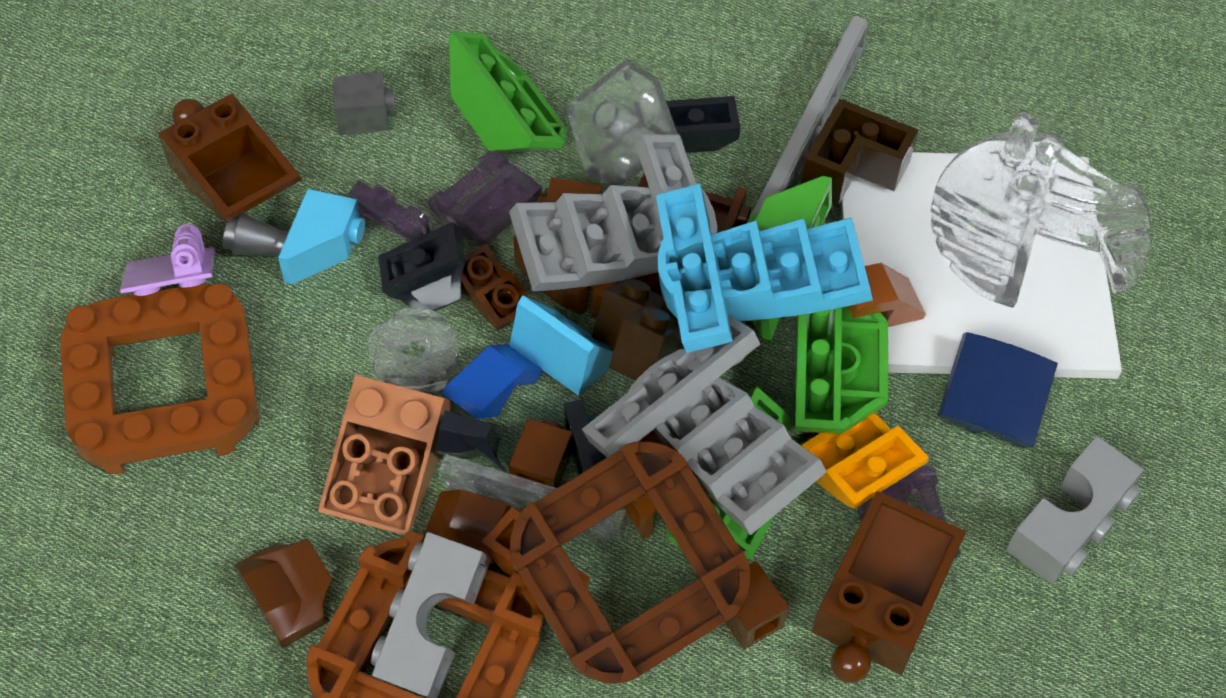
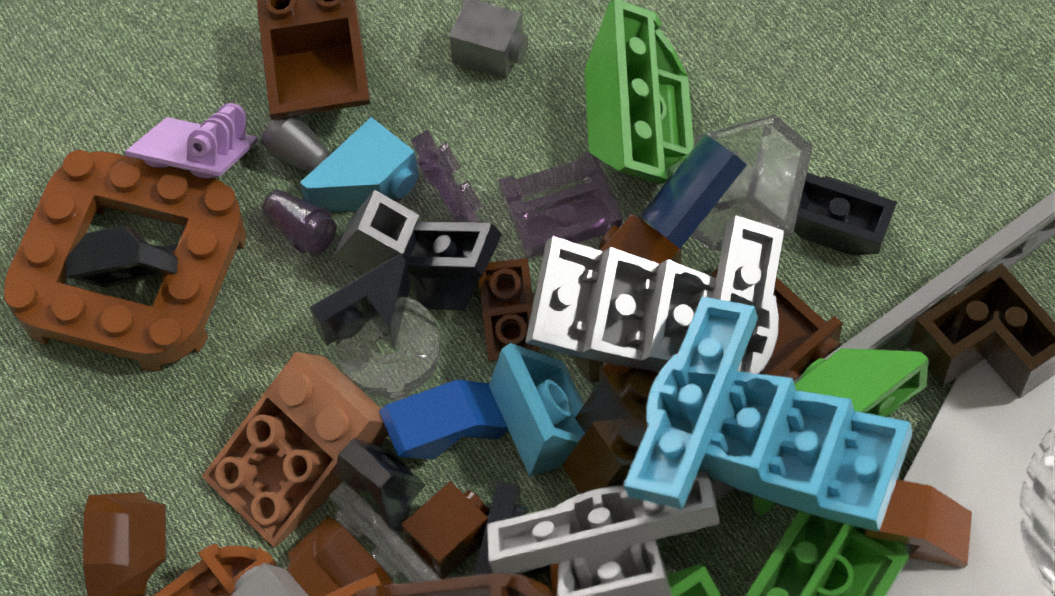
camera: 35 degrees right, 5 degrees up
(159, 372) = (119, 258): none -> black slope
(289, 290) = (301, 222): none -> cone
(361, 272) = (376, 233): none -> flat silver brick
(387, 316) = (374, 296): none -> black slope
(593, 136) = (693, 190): none -> dark blue slope

